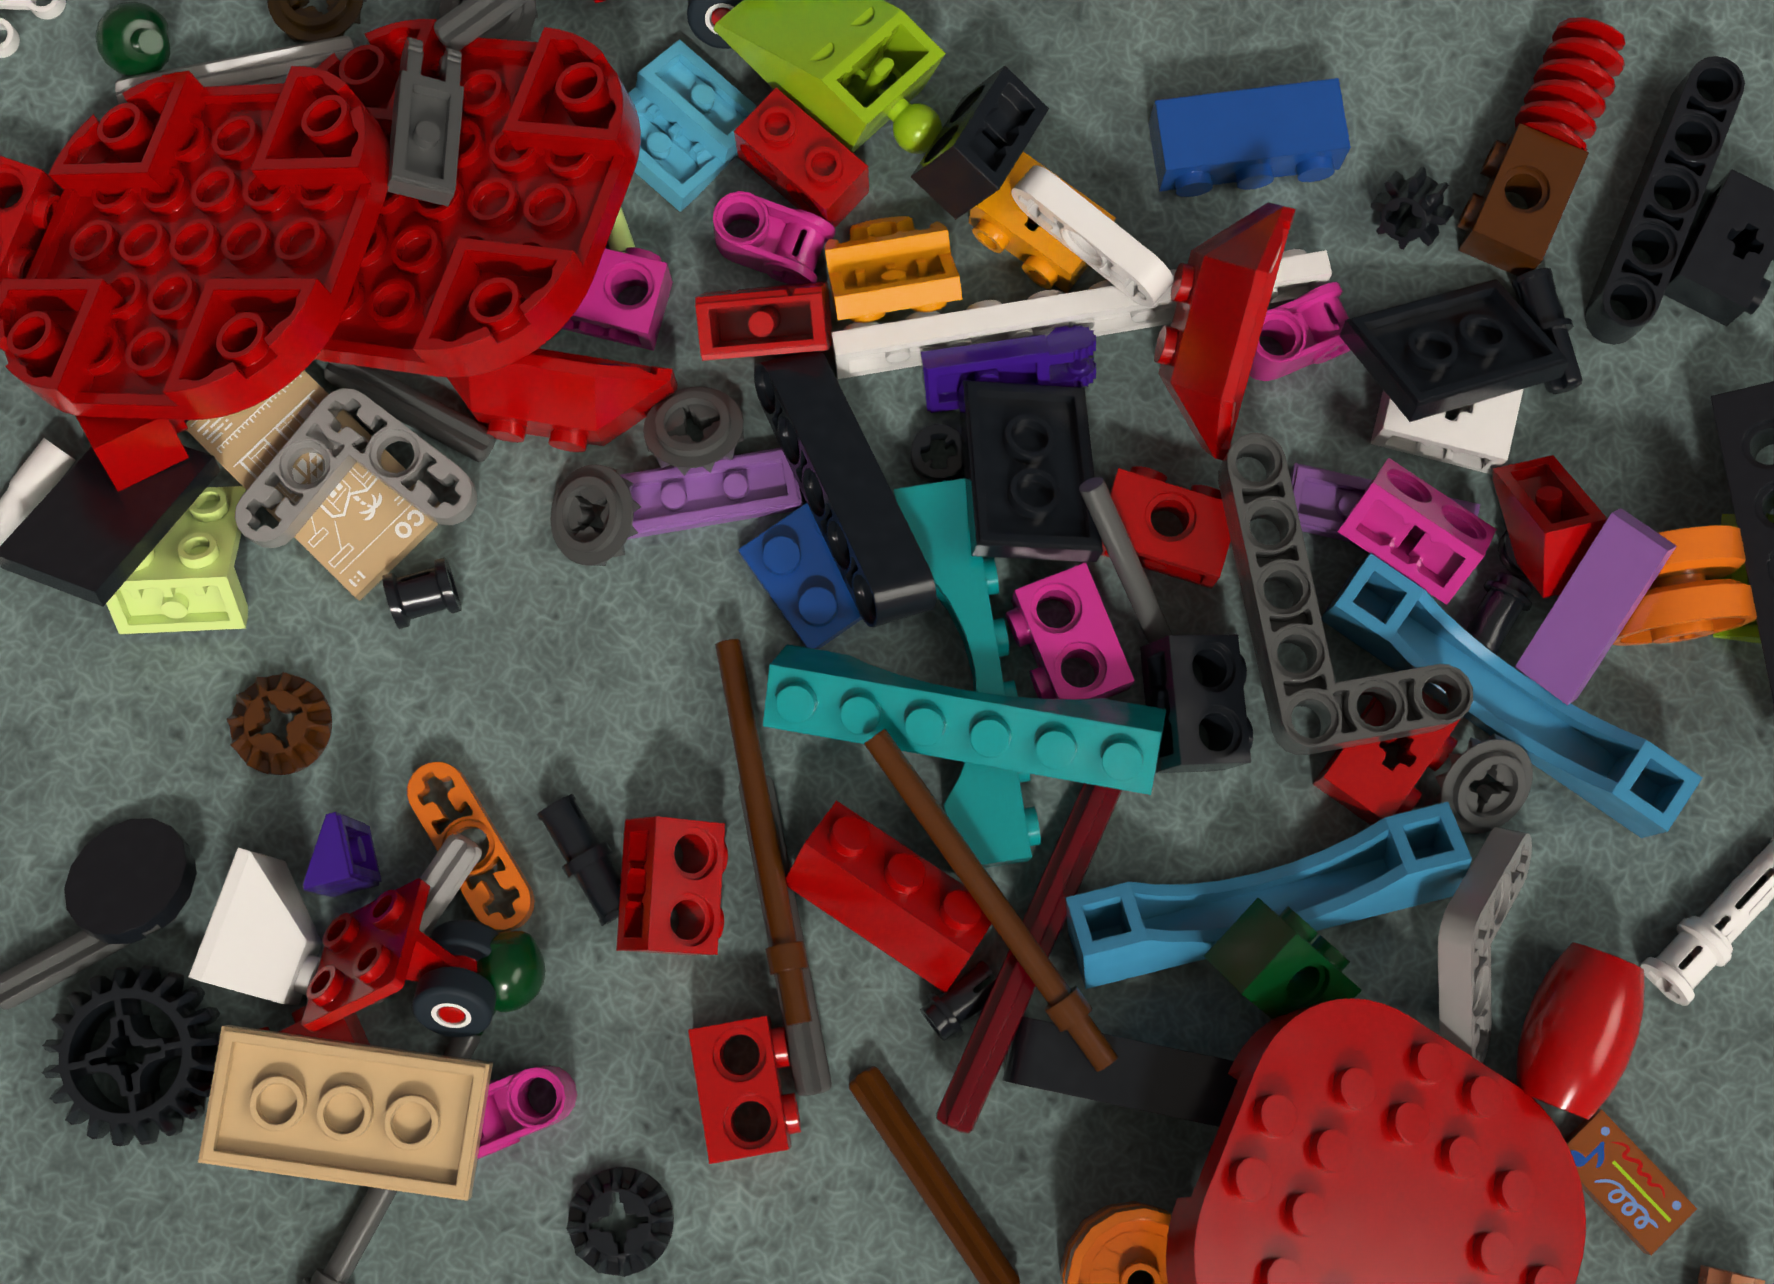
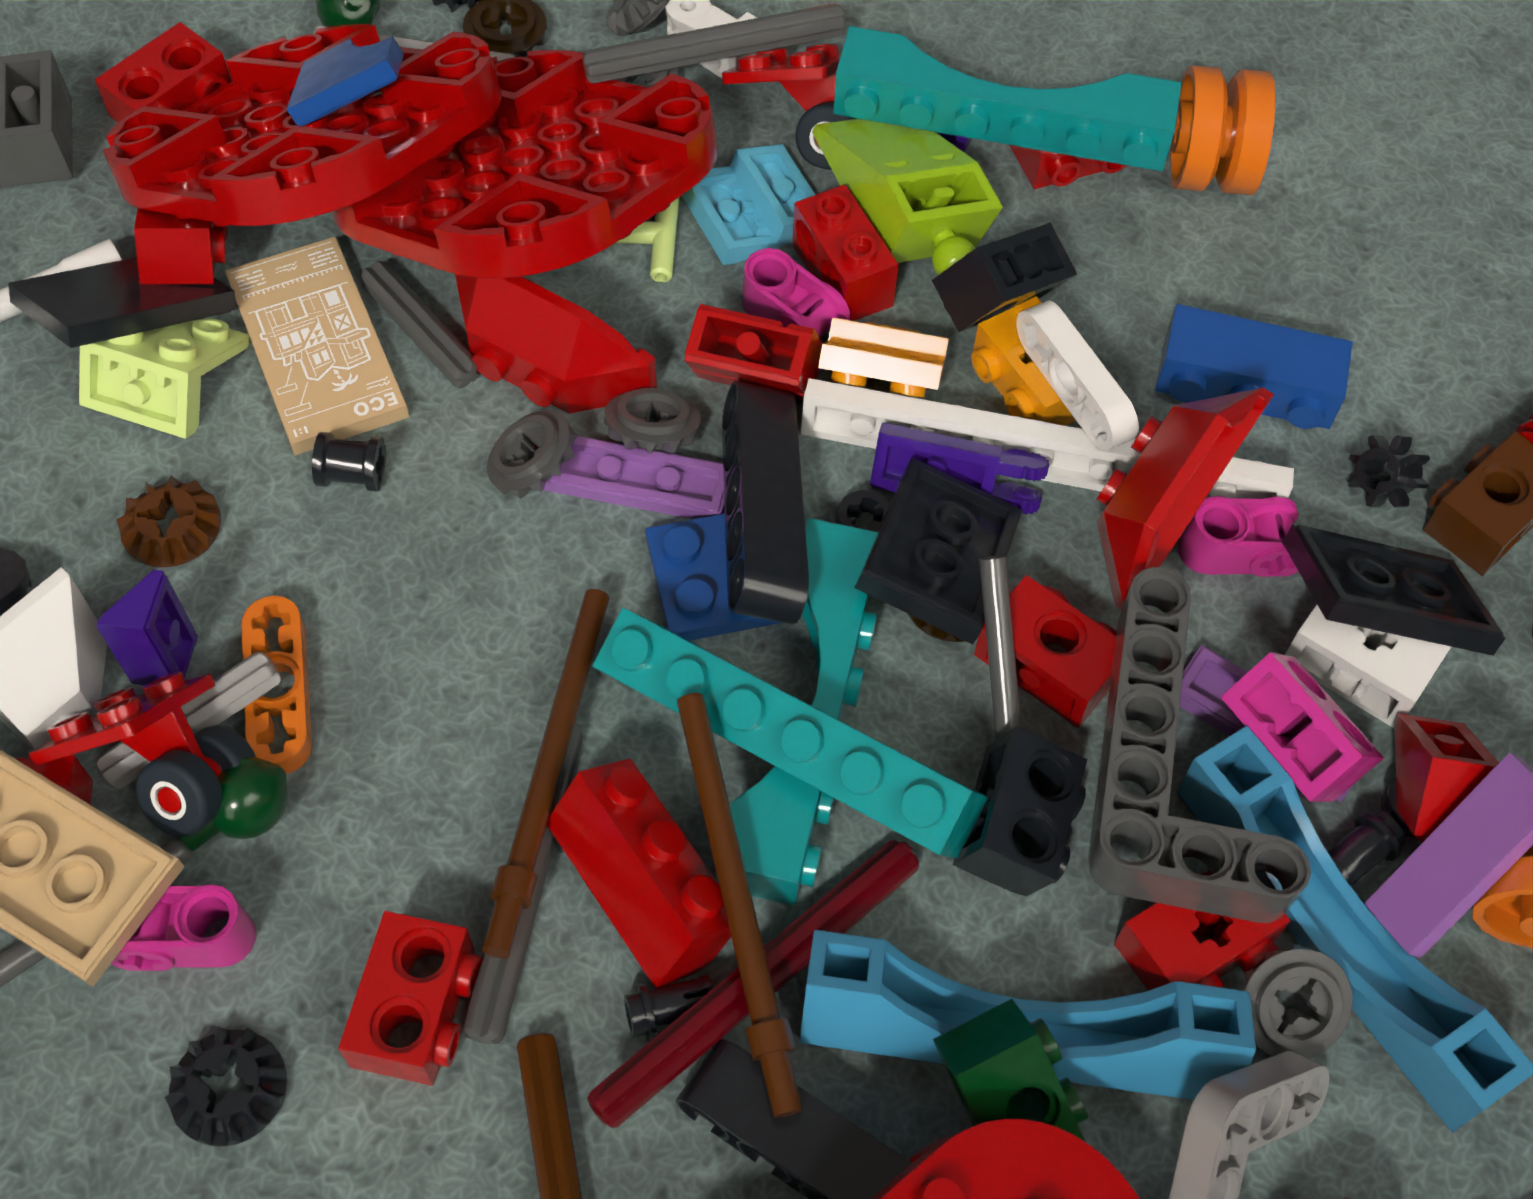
camera: 20 degrees right, 20 degrees down
(211, 182) = (342, 77): none -> blue tile
(340, 453) = (342, 328): light grey beam -> none
(426, 127) = (535, 106): dark grey hinge -> none
(584, 856) = (374, 734): black pin -> none
(606, 318) = (629, 293): dark pink brick -> none
(656, 884) = (427, 770): red brick -> none
(1085, 637) = (928, 714): dark pink brick -> none
(1540, 301) = (1492, 585): black axle -> none

